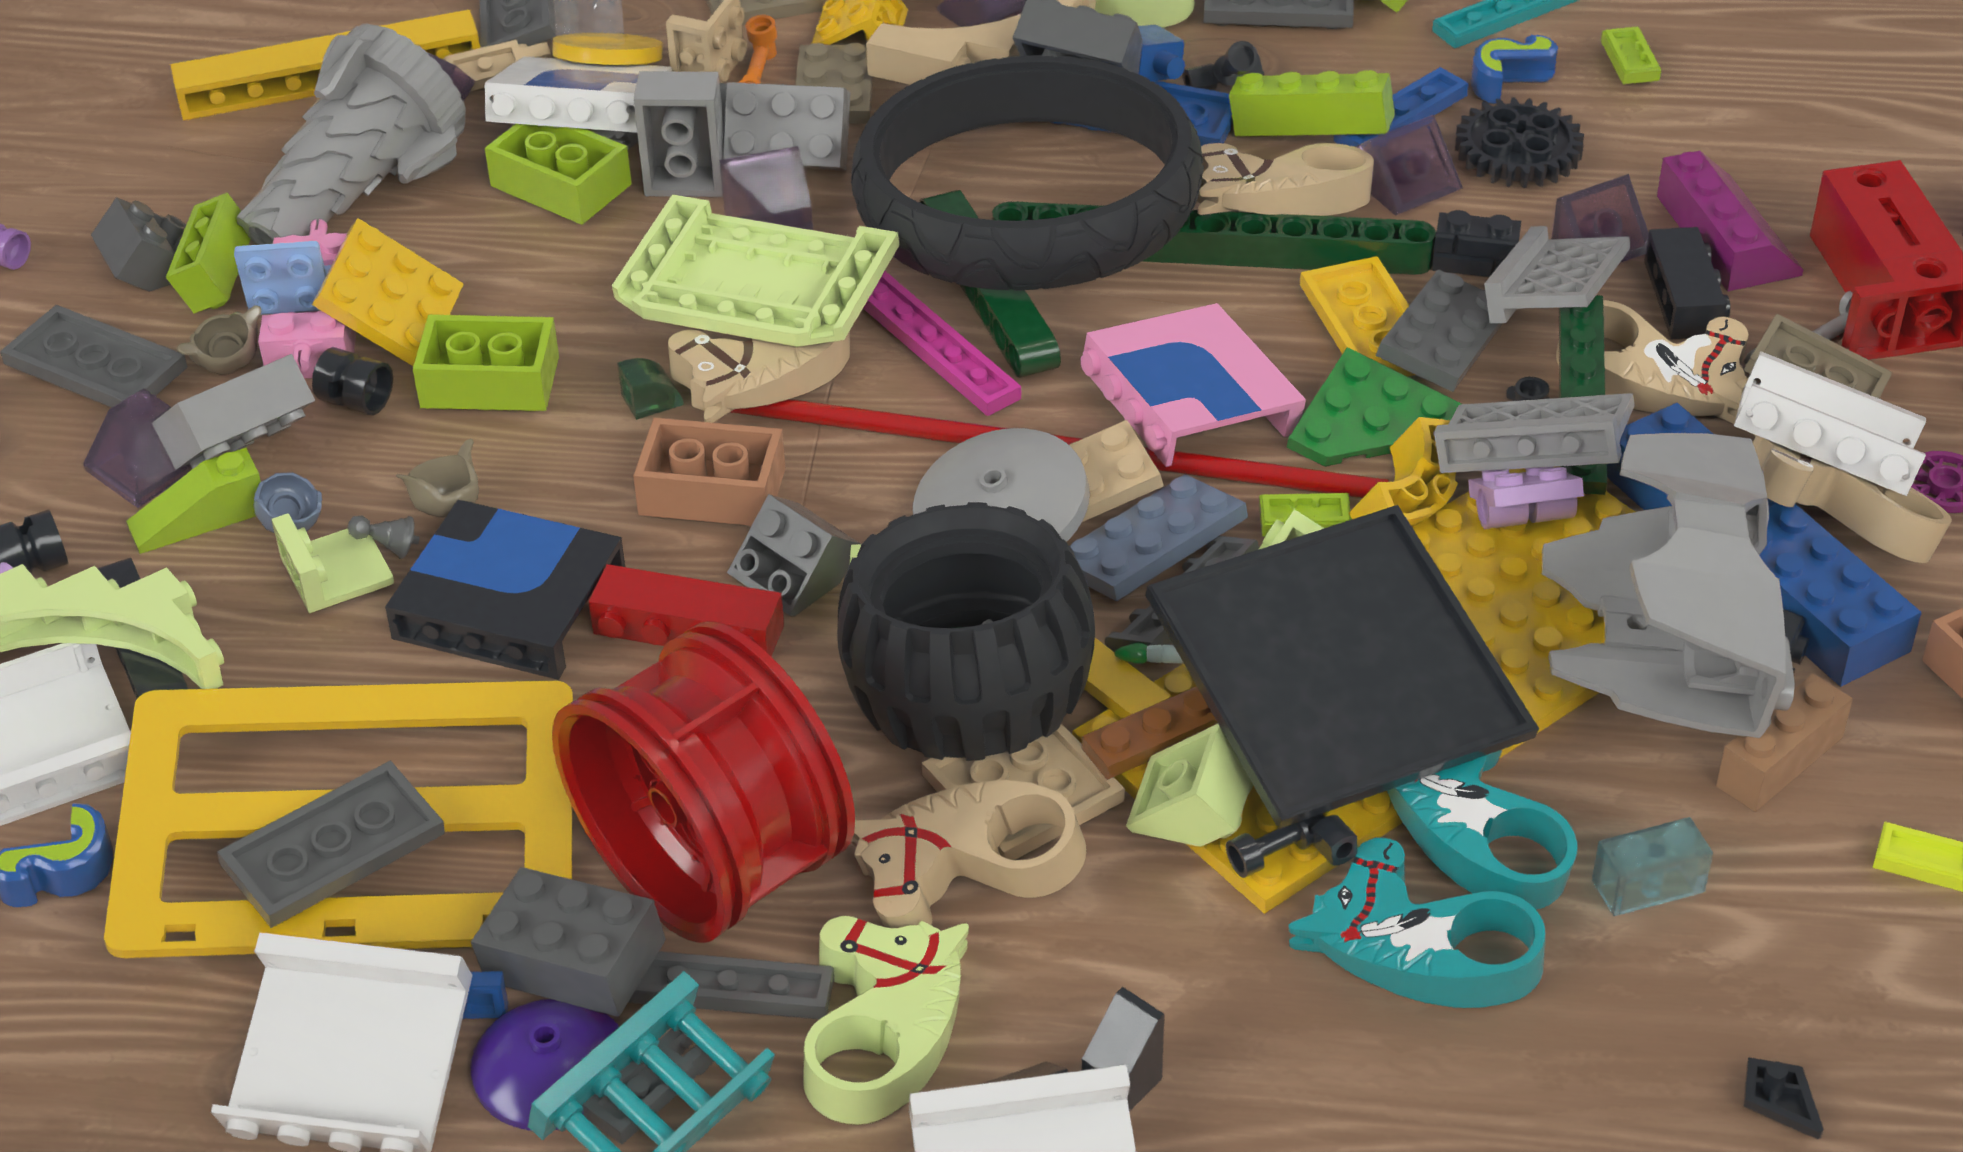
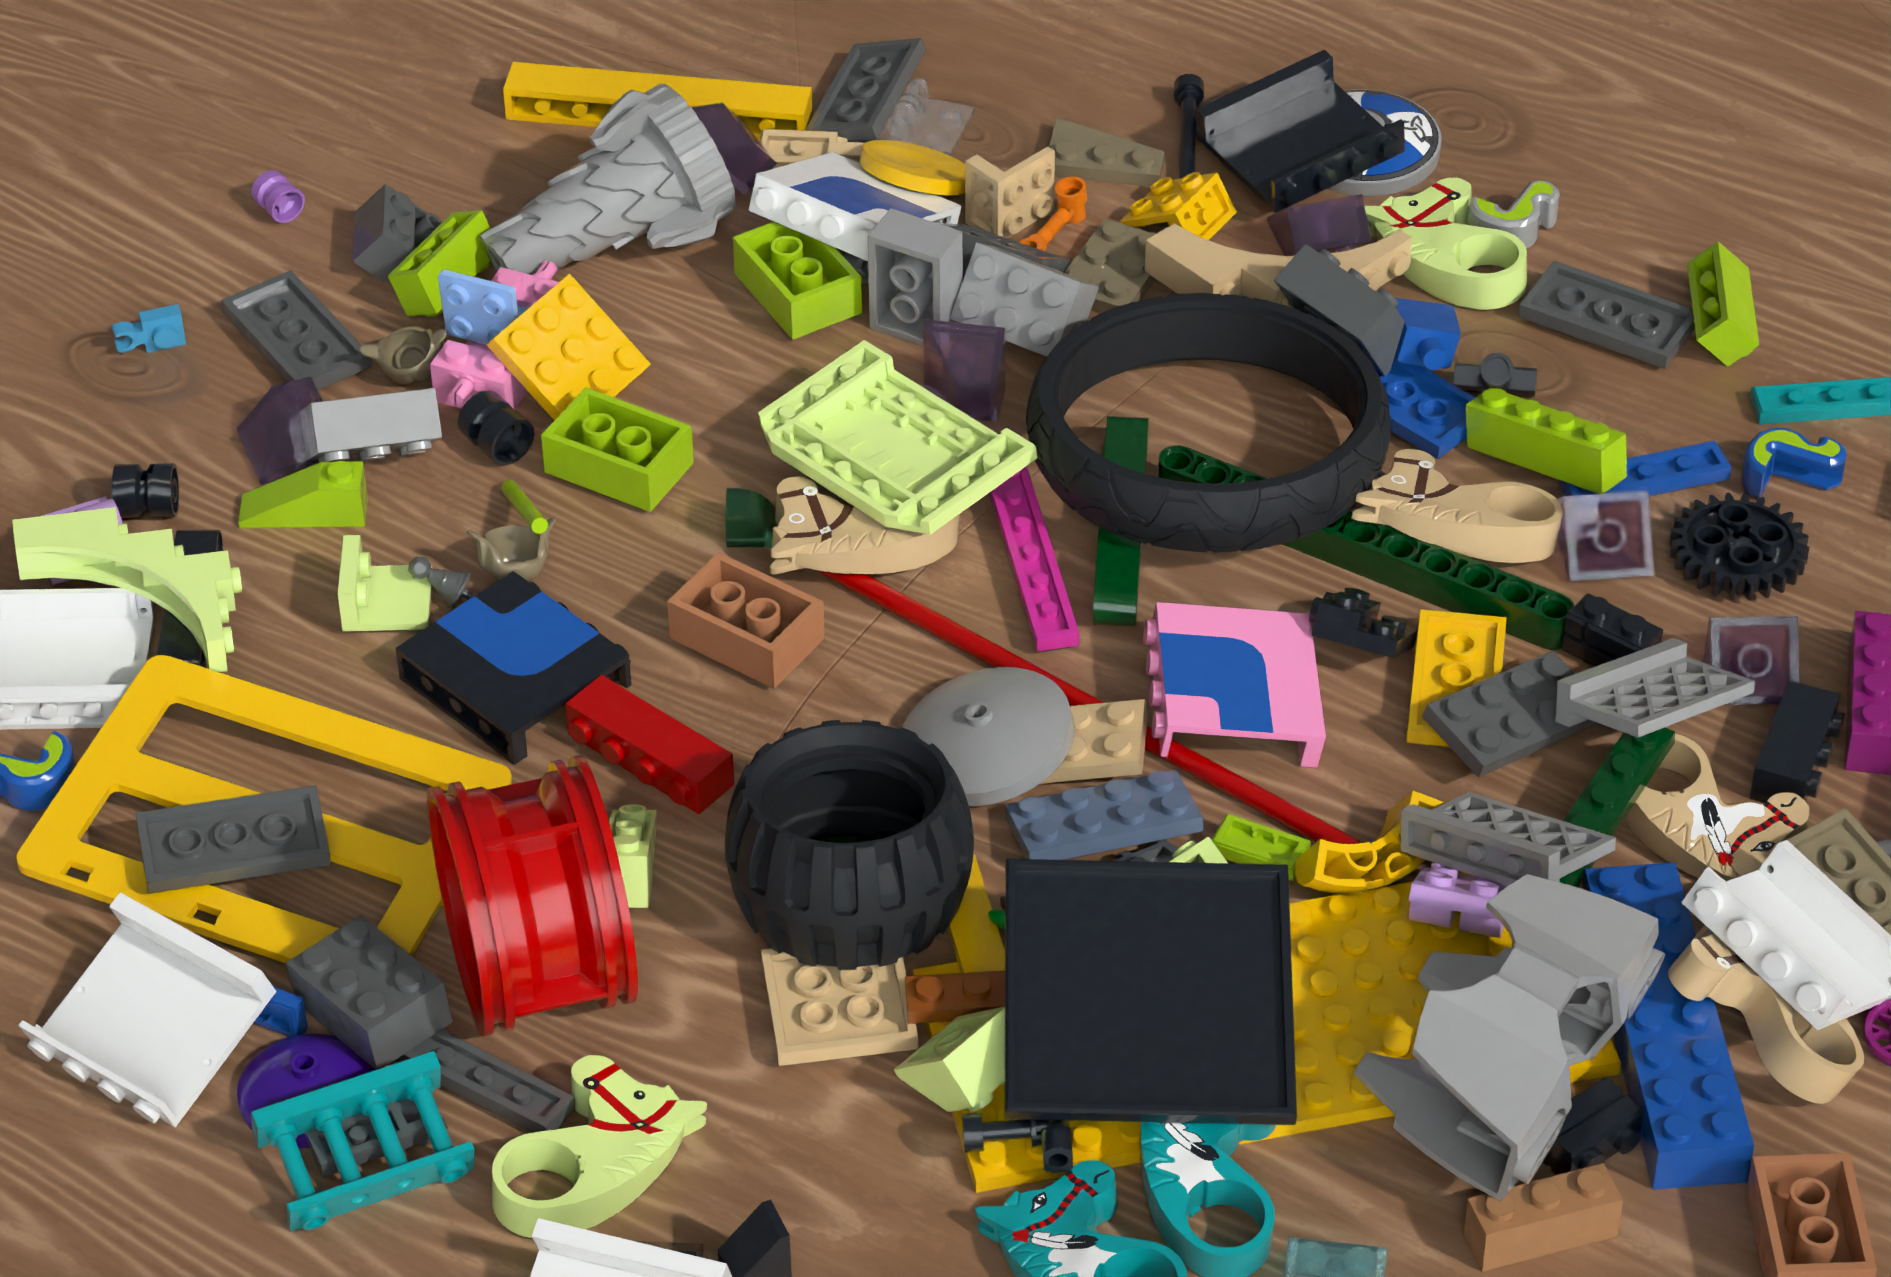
camera: 25 degrees right, 0 degrees up
(287, 494) = (379, 523): sand blue hair -> none
(428, 440) = (524, 506): none -> lime bar
(792, 554) = (765, 709): dark grey slope -> none
(958, 833) = (741, 1023): tan animal -> none
(1255, 296) = (1353, 621): none -> black plate
(1363, 411) = (1381, 765): green plate -> none
(1528, 389) = (1557, 802): black plate -> none

